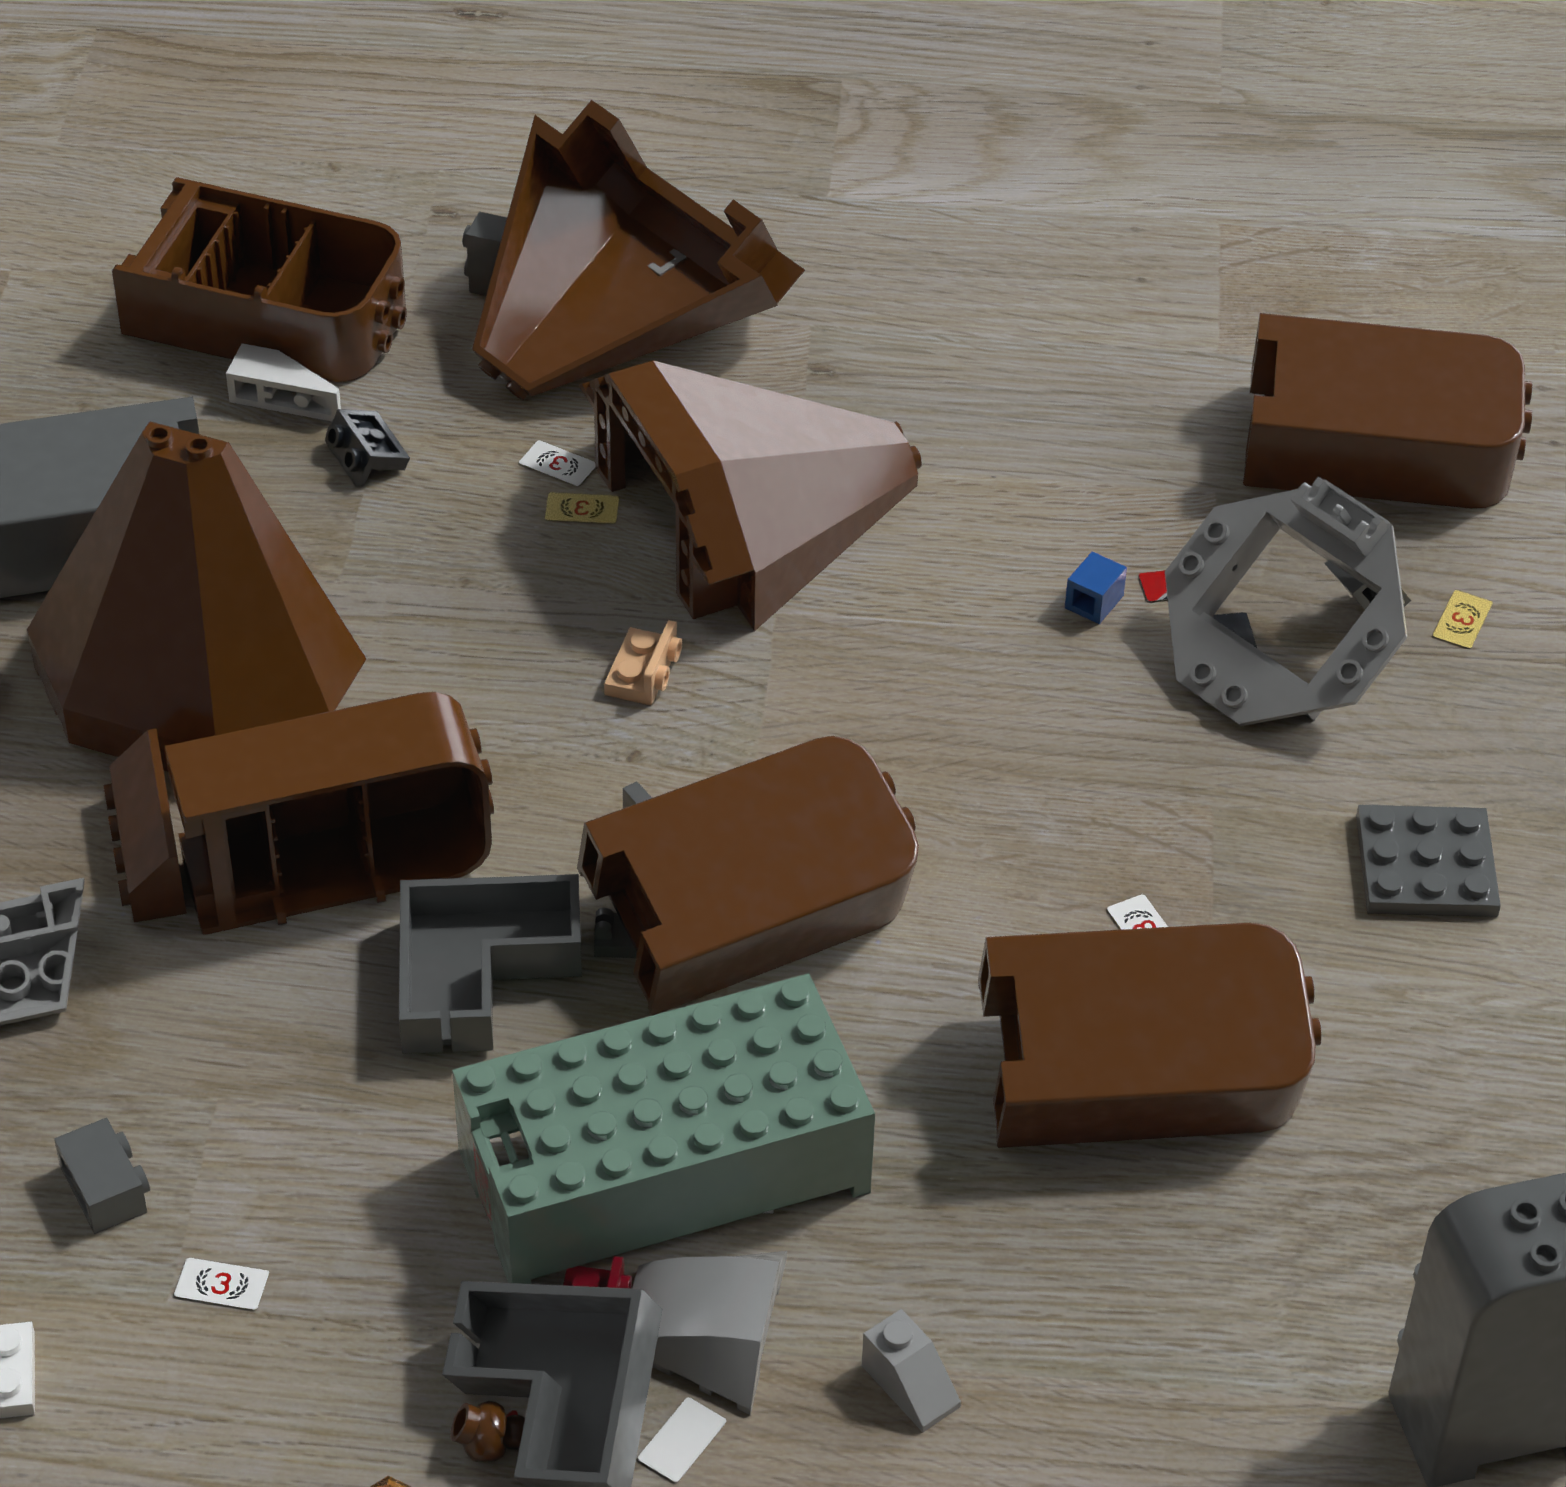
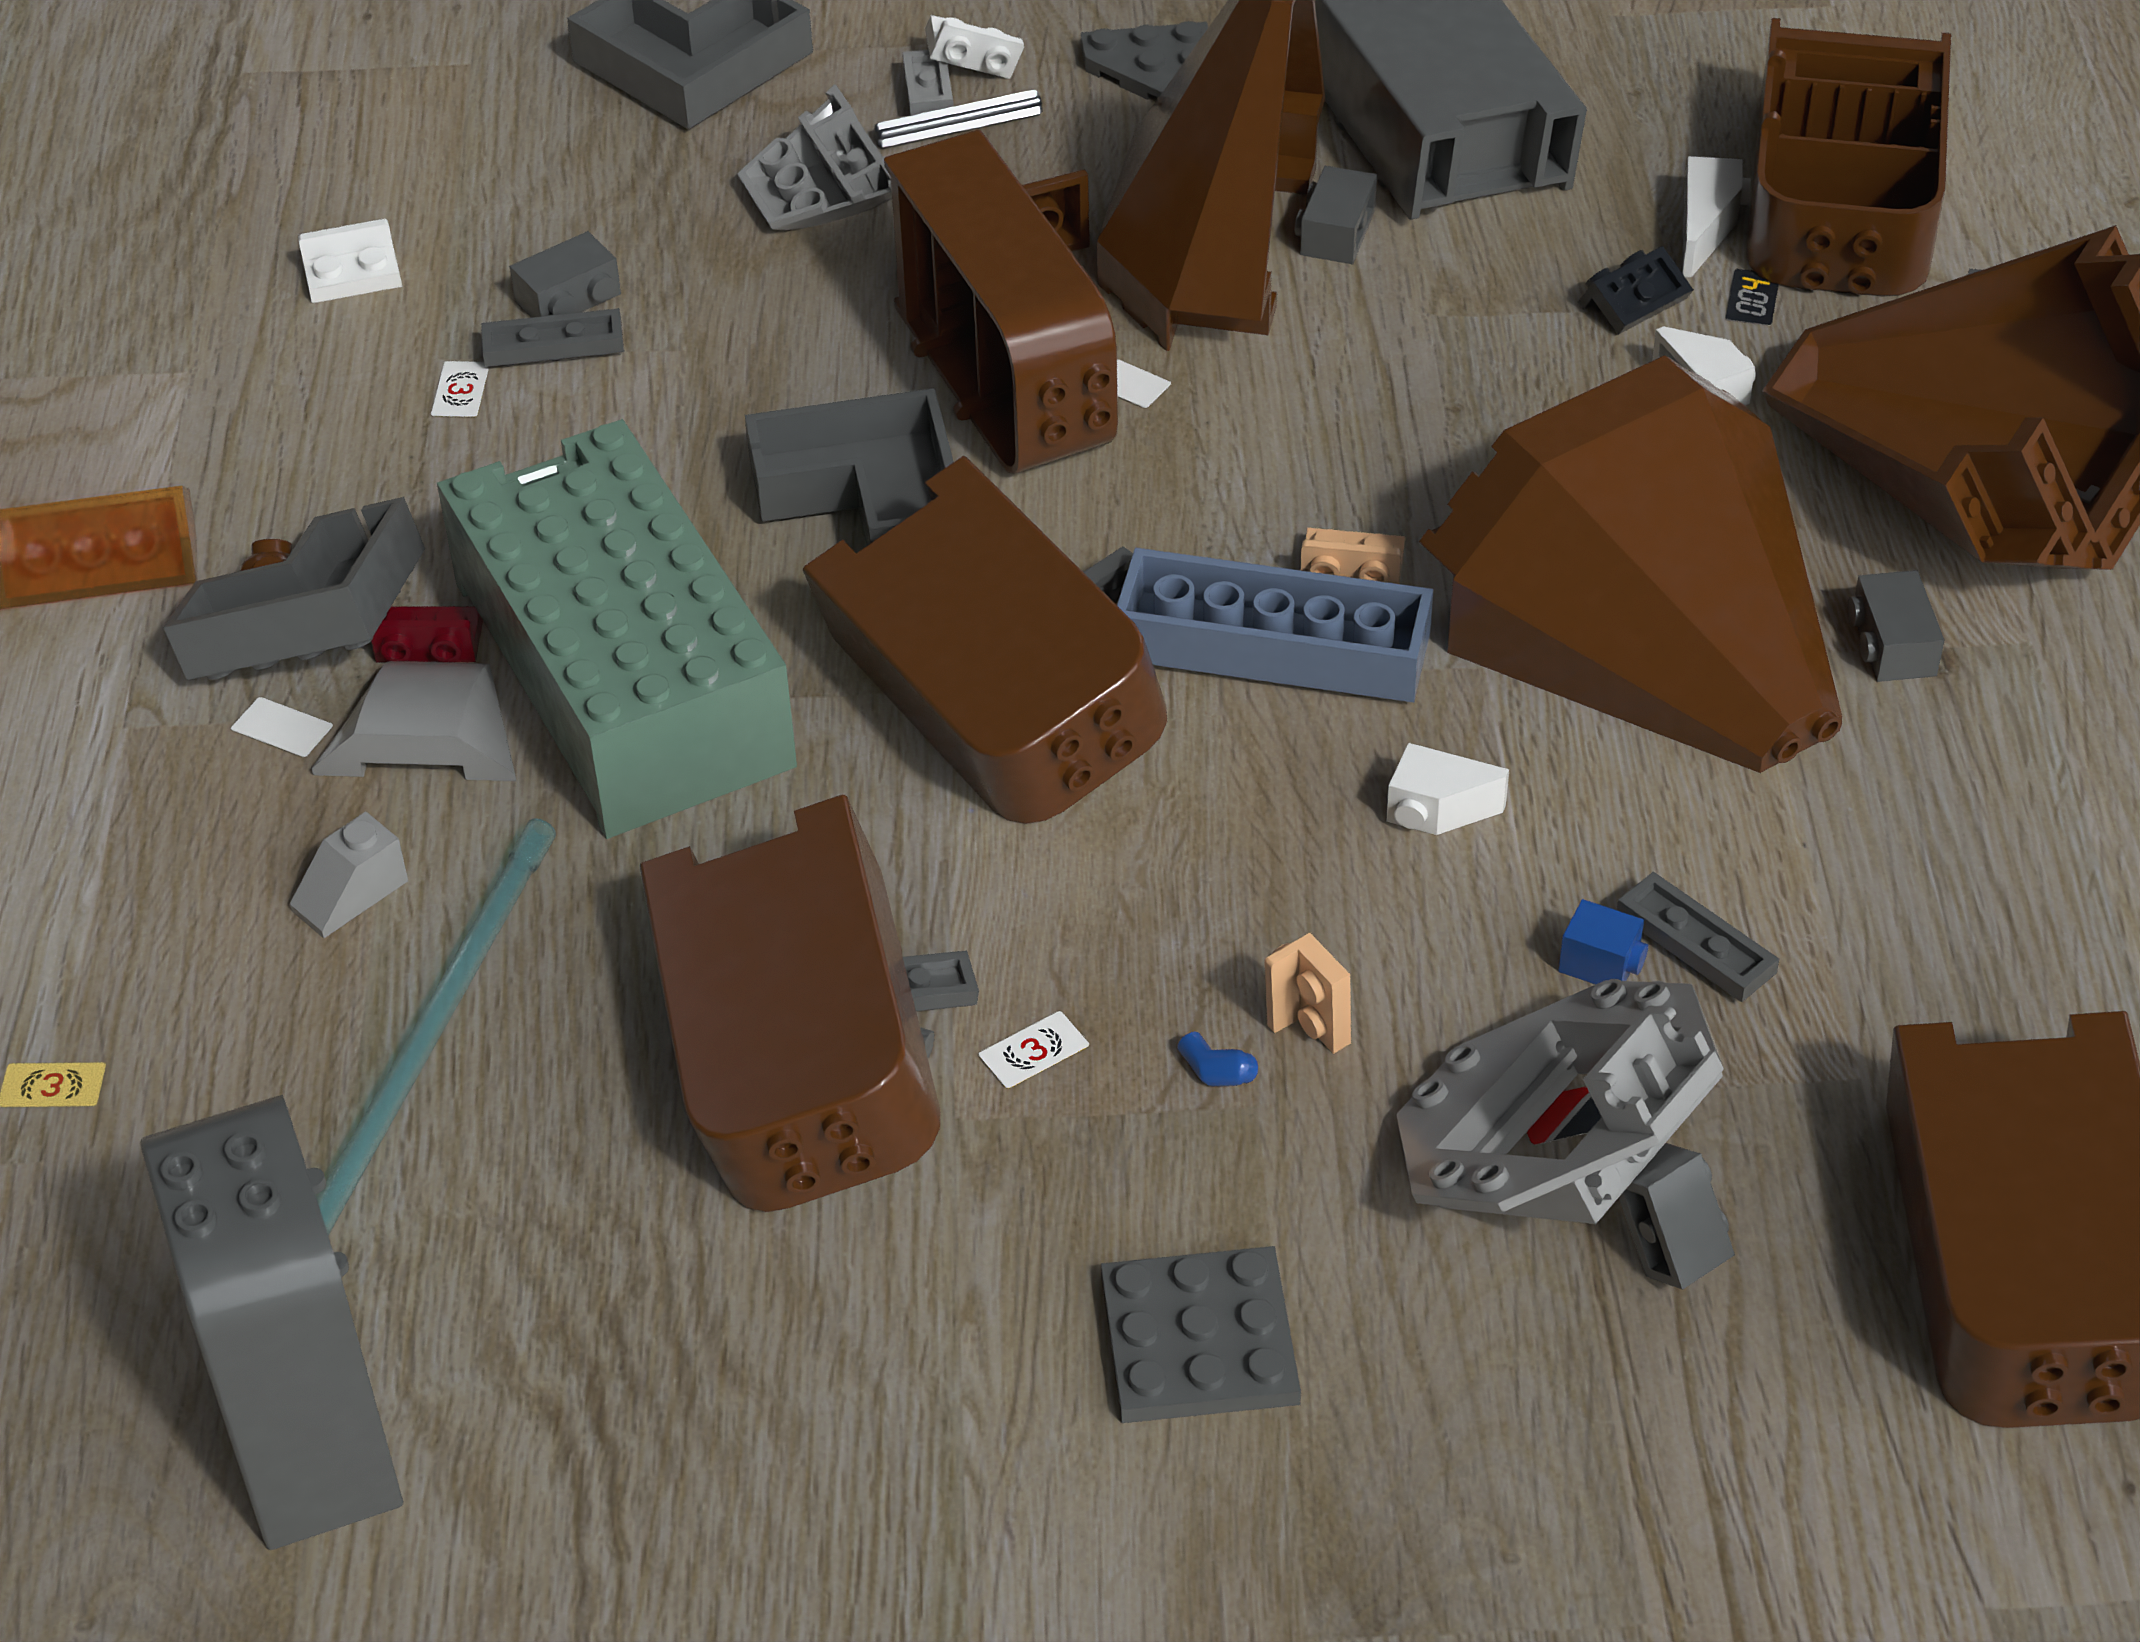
camera: 85 degrees right, 0 degrees up
(183, 1193) = (552, 337): none -> dark grey plate
(381, 389) = (1751, 298): none -> black sticker
(482, 424) = (1710, 358): none -> white slope
(735, 697) = (1279, 623): none -> sand blue brick
(800, 372) = (1896, 626): none -> dark grey brick
(924, 649) = (1444, 791): none -> white slope
(1096, 533) = (1699, 937): none -> dark grey plate
(1143, 736) = (1309, 987): none -> light nougat bracket
(1182, 818) = (1220, 1066): none -> blue arm
(1363, 1427) = (350, 1167): none -> clear light blue piece
(1462, 618) = (1692, 1373): clear yellow sticker -> none

